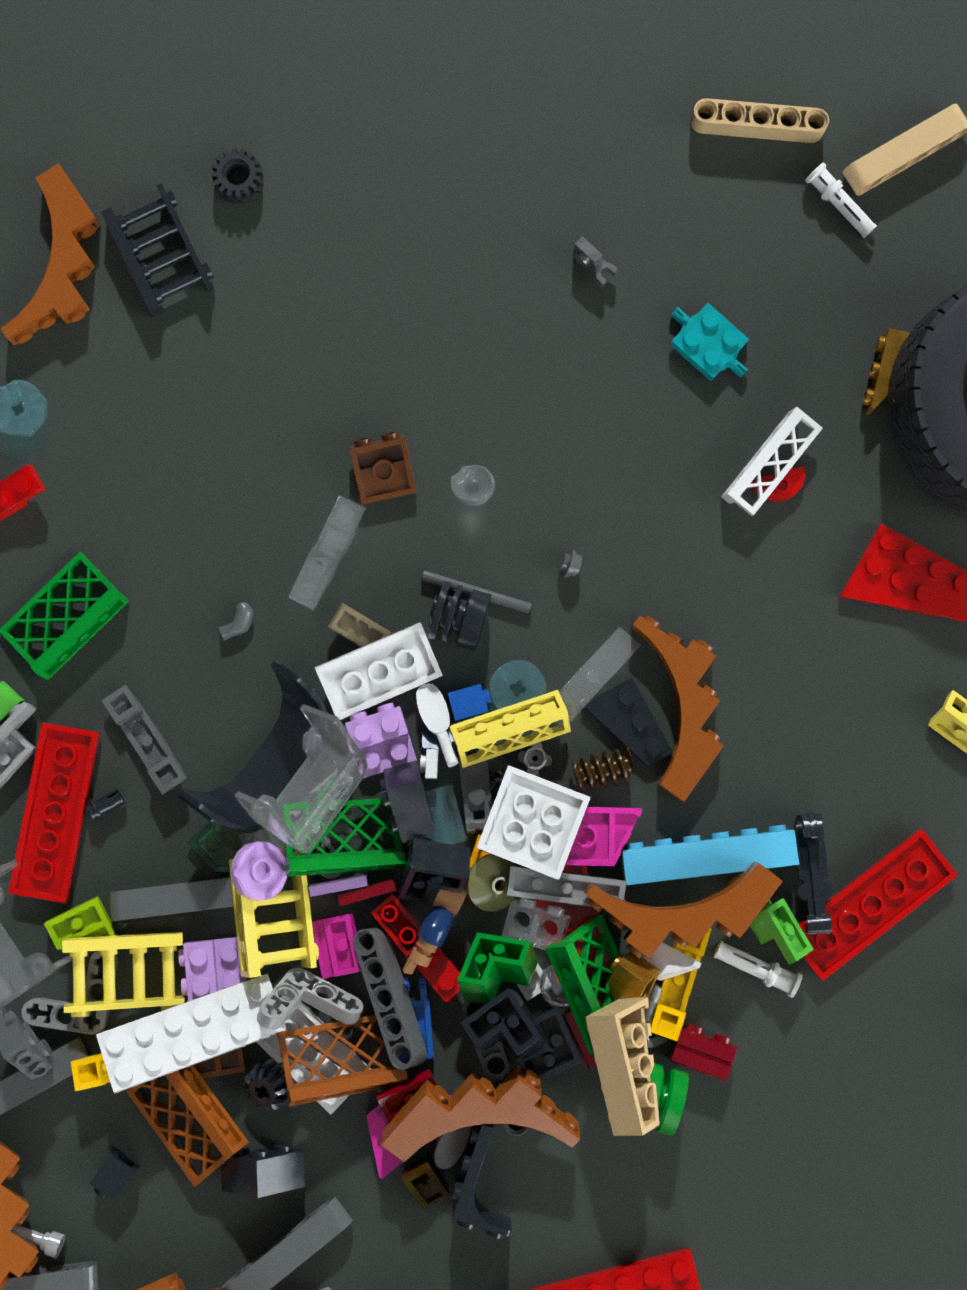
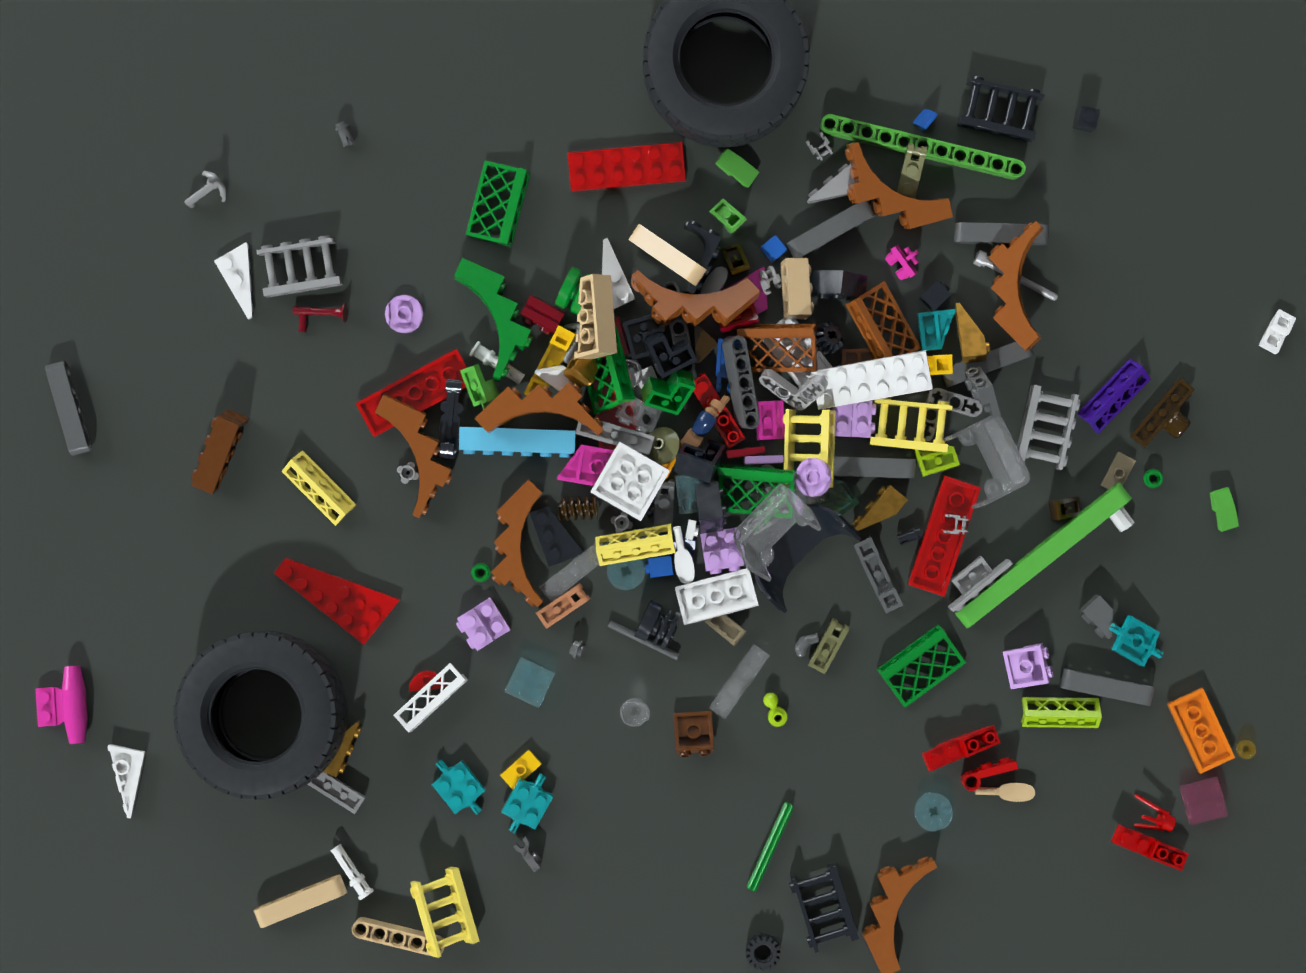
camera: 170 degrees left, 5 degrees up
(25, 832) = (956, 531): none -> light grey piece
(51, 1121) = (970, 337): none -> pearl gold slope
(110, 1125) = (933, 328): none -> teal wing
(147, 843) = (885, 506): none -> pearl gold slope
(180, 1229) = (898, 255): none -> dark pink hips
(203, 623) = (828, 646): none -> olive plate
(248, 324) = (770, 846): none -> green axle
(276, 532) = (771, 701): none -> lime plate
(326, 1154) = (796, 288): none -> tan brick
(370, 1209) = (773, 248): none -> blue slope
(375, 1158) = (765, 281): none -> light grey piece
(447, 1250) = (727, 216): none -> bright green slope
(454, 1046) = (703, 343): none -> dark brown slope
(529, 1177) = (667, 254): none -> beam
(592, 1110) = (621, 290): none -> white wing
(602, 622) = (562, 606): none -> nougat plate
(607, 333) = (527, 803): none -> teal plate
(624, 380) = (521, 768): none -> yellow plate
(632, 506) = (529, 682): none -> clear light blue plate
(674, 162) = (462, 915): none -> light yellow fence
(714, 578) = (482, 624): none -> lavender plate
(737, 650) = (474, 572): none -> green plate
(772, 1217) = (514, 203): none -> green fence
(790, 1082) = (488, 286): none -> green arch
(863, 775) = (409, 467): none -> light grey plate
(875, 858) = (431, 472): none -> dark orange arch
(880, 308) = (338, 791): none -> light grey plate
(907, 1020) = (404, 314): none -> lavender tile

